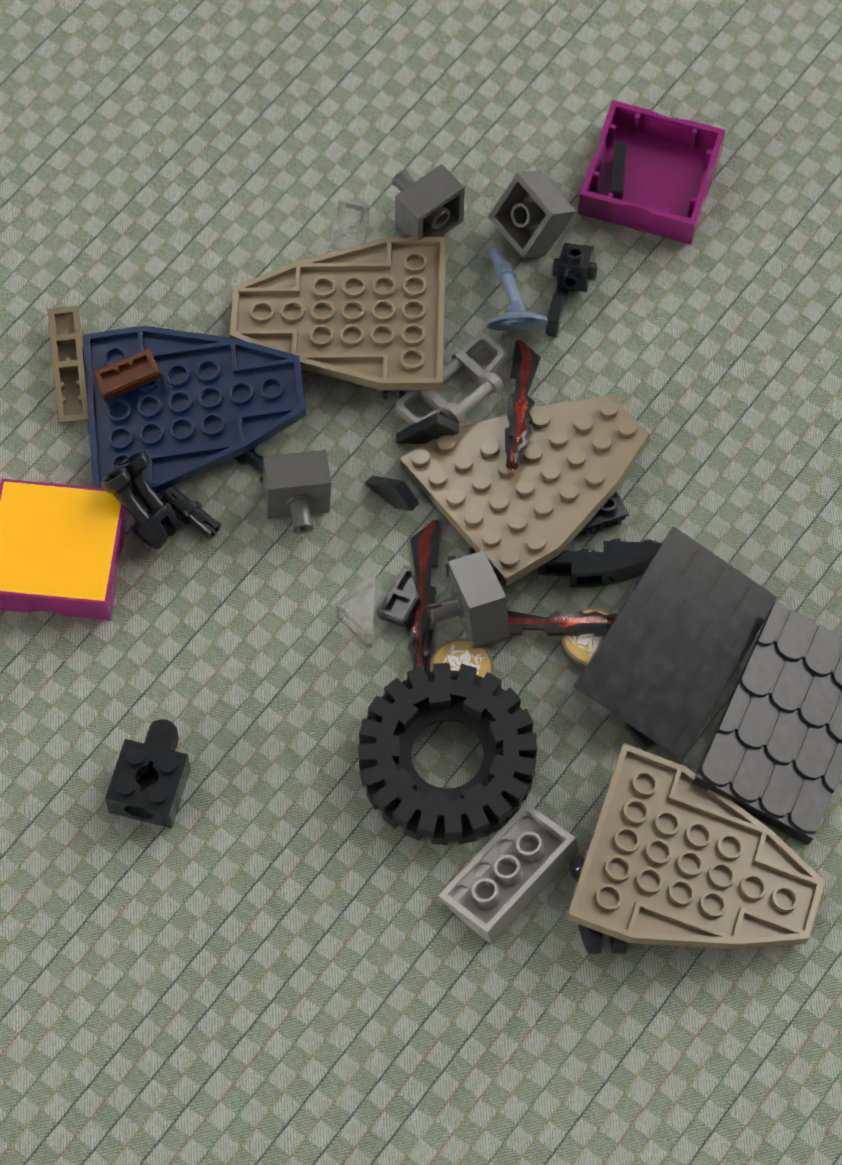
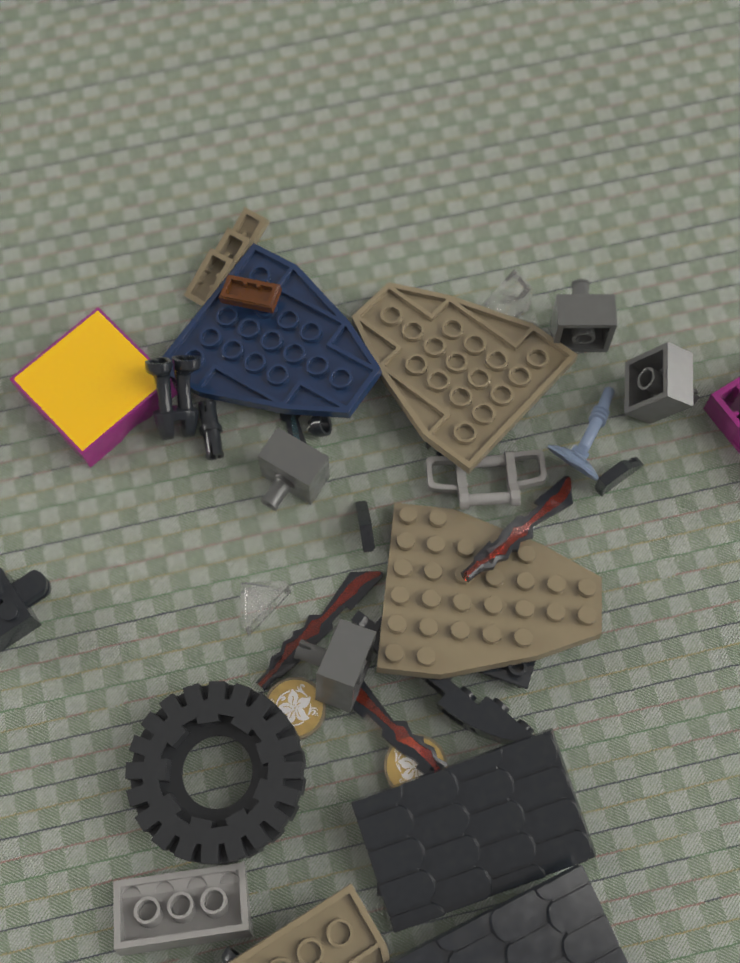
camera: 45 degrees right, 5 degrees up
(281, 442) = (320, 426): none -> black hinge
(401, 600) = (299, 616): black tile -> none
(427, 429) = (433, 497): black tile -> none
(575, 267) = (659, 451): black brick -> none

